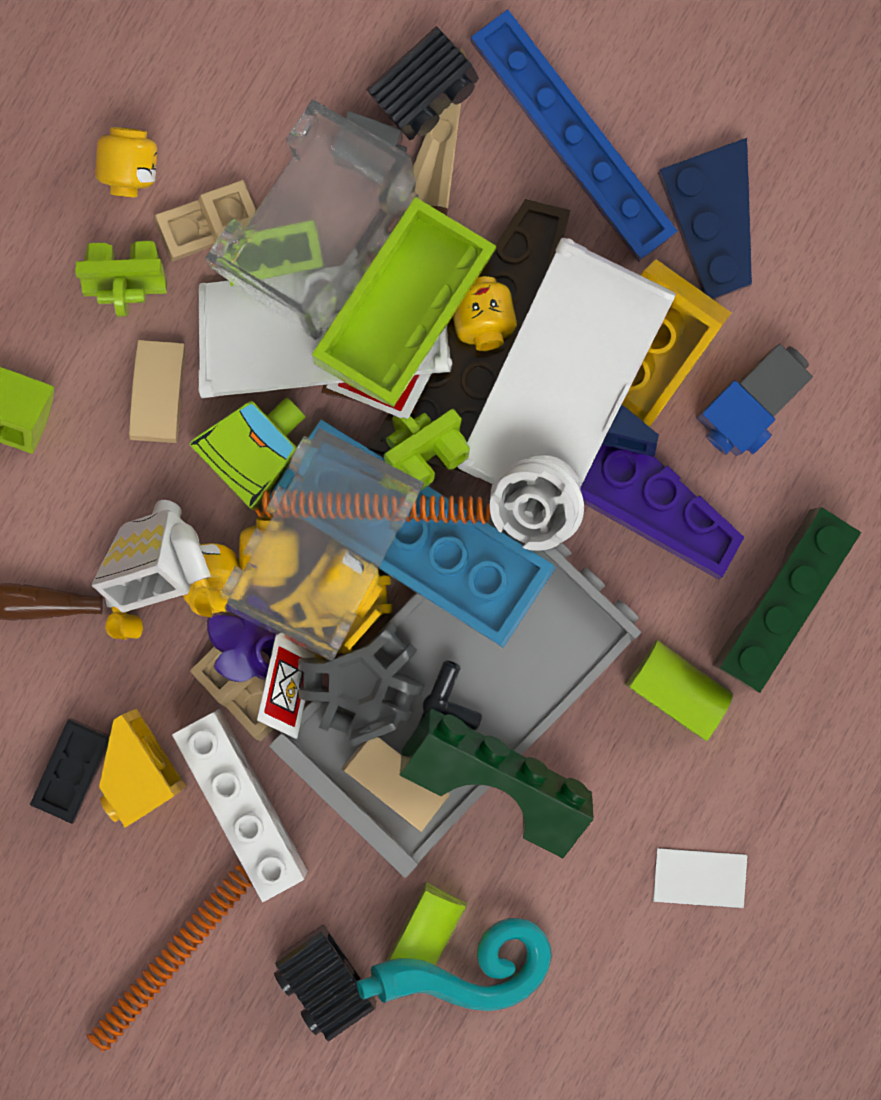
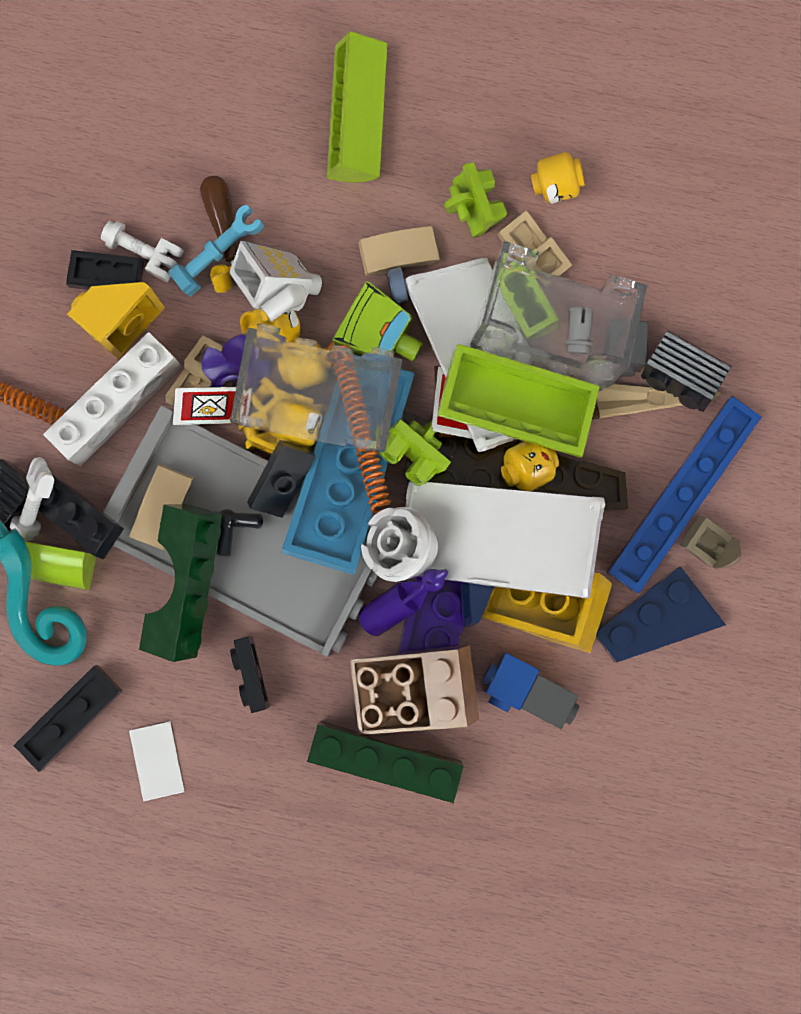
camera: 80 degrees right, 5 degrees down
(26, 744) = (115, 235): none -> white hinge
(106, 670) = (214, 251): none -> medium azure piece
(202, 407) = (397, 285): none -> sand blue tile
(327, 922) = (41, 485): none -> white hinge
(338, 198) = (579, 330): none -> light grey pin
(359, 685) = (223, 457): dark grey piece -> none
(376, 889) = (80, 519): none -> black plate
(410, 622) = (281, 478): none -> black plate
(603, 524) = (399, 602): none -> dark purple wheel
(617, 970) = (67, 718): none -> black plate
(645, 122) = (711, 544): none -> dark tan plate
(653, 735) = (246, 659): none -> black plate
(680, 690) = (293, 702): lime brick -> none
(714, 537) = (415, 690): none -> medium nougat slope

